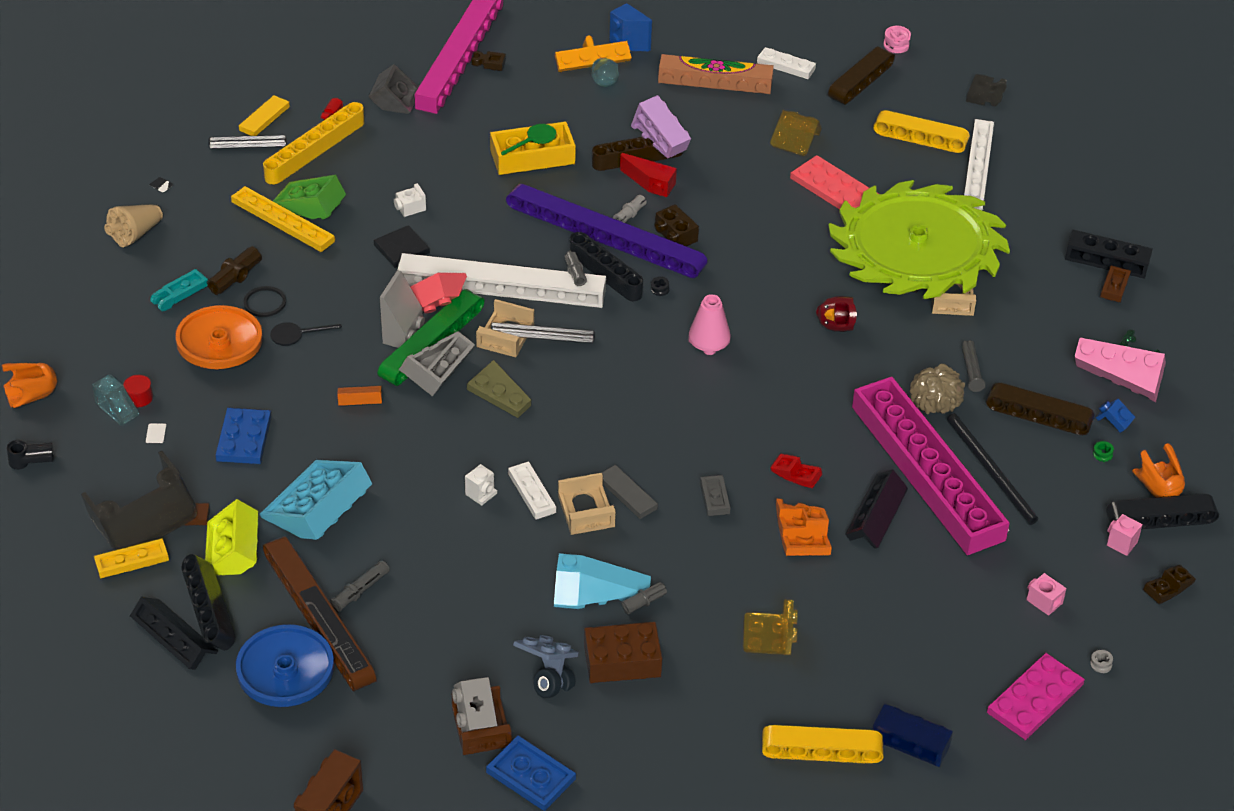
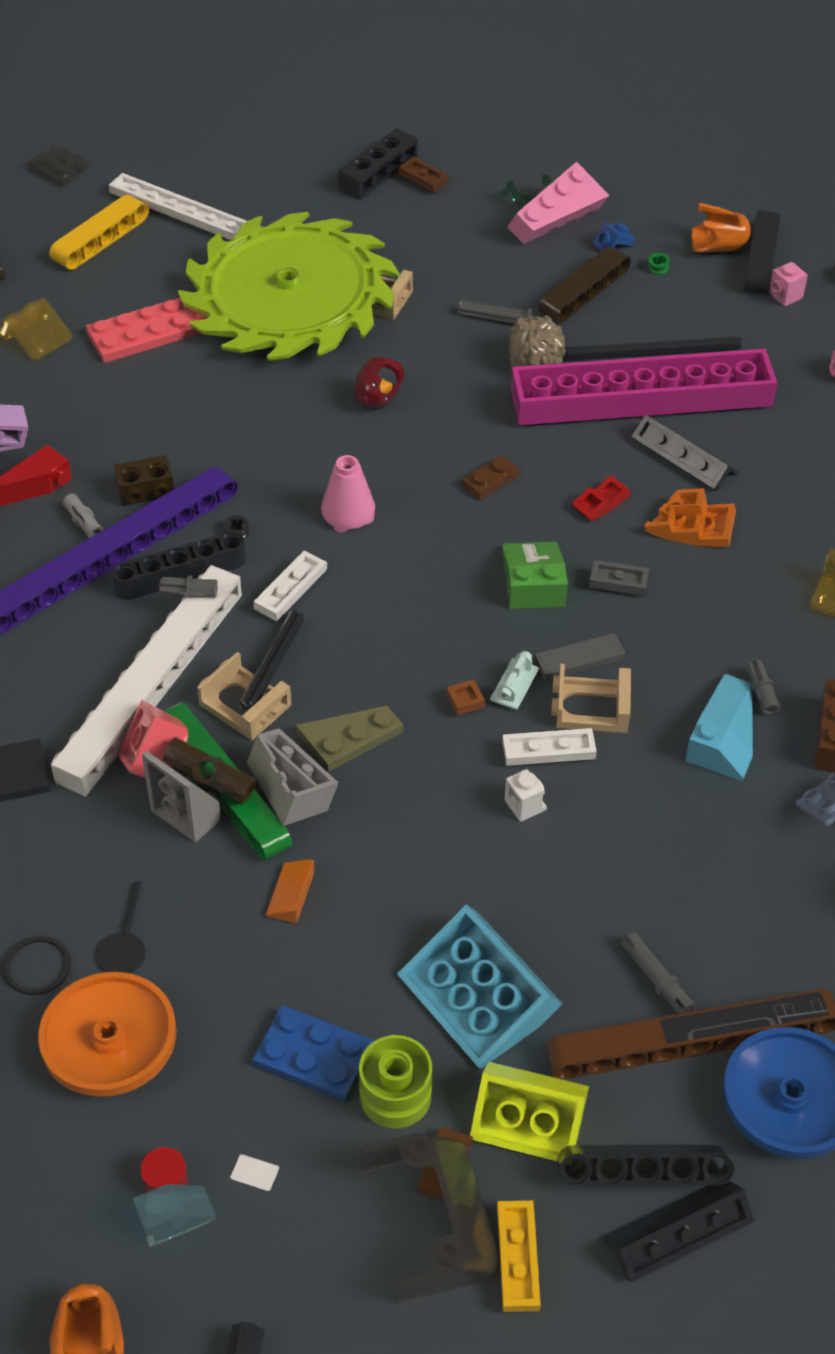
camera: 70 degrees left, 5 degrees up
(227, 469) = (395, 1081): none -> lime wheel
(419, 317) = (225, 778): none -> dark brown piece
(557, 437) = (465, 697): none -> dark orange plate
(577, 460) = (515, 681): none -> light aqua hinge
(617, 325) = (290, 585): none -> white plate
(695, 447) = (535, 575): none -> bright green slope
(785, 404) = (490, 477): none -> reddish brown plate

